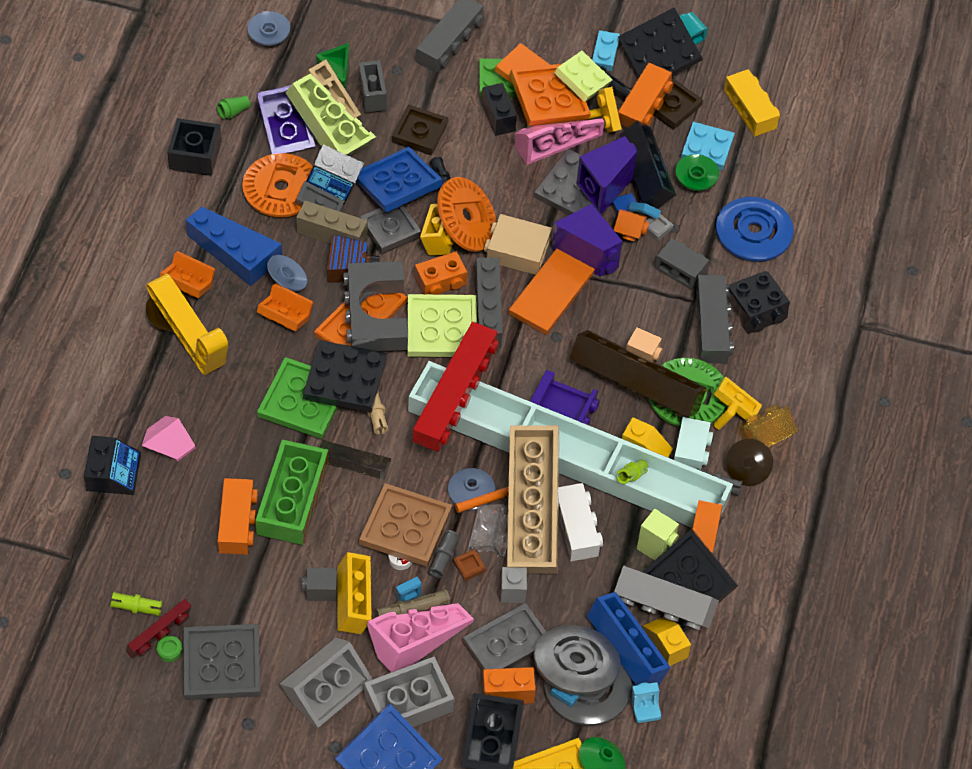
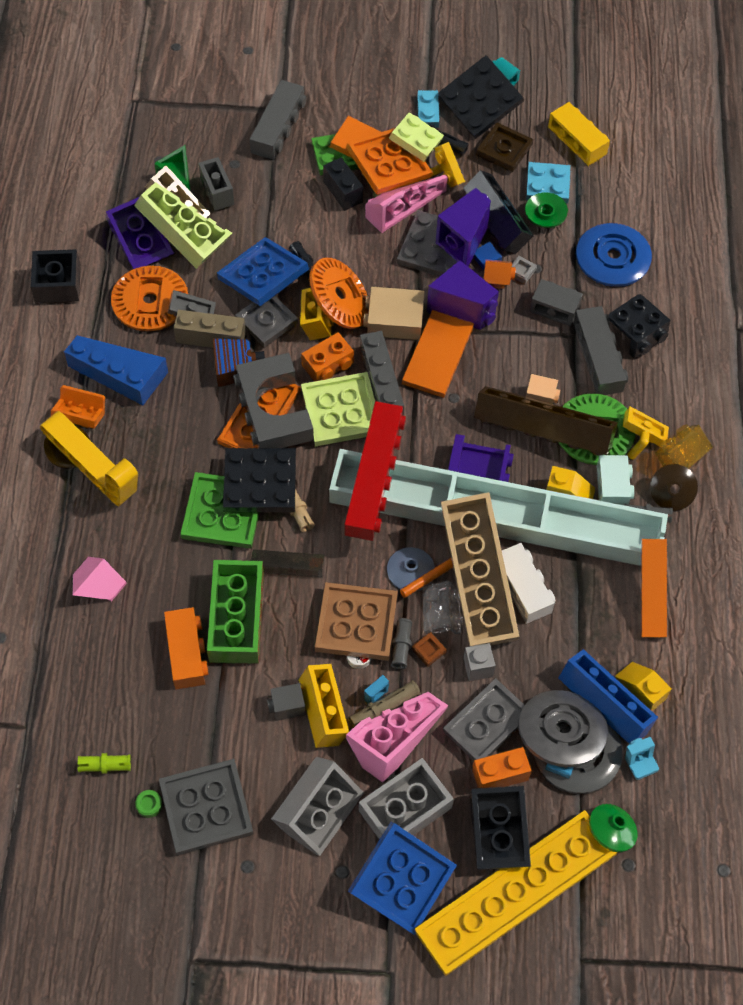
camera: 10 degrees left, 5 degrees up
(111, 466) = (46, 621): black slope -> none
(159, 629) = (134, 786): dark red plate -> none
(230, 107) = (83, 229): bright green cone -> none
(268, 28) = (101, 145): sand blue dish -> none
(286, 307) = (184, 421): orange bracket -> none
(287, 272) = (176, 385): sand blue dish -> none
(334, 172) = (200, 275): slope -> none
(420, 129) = (271, 217): dark brown plate -> none
(632, 471) = (567, 521): lime pin -> none
(644, 209) = (507, 255): dark azure tile -> none
(646, 96) = (481, 145): orange brick -> none
(657, 534) = (609, 582): yellowish green brick -> none
(667, 597) = (634, 644): light grey brick -> none
(693, 567) = (649, 622): black plate -> none

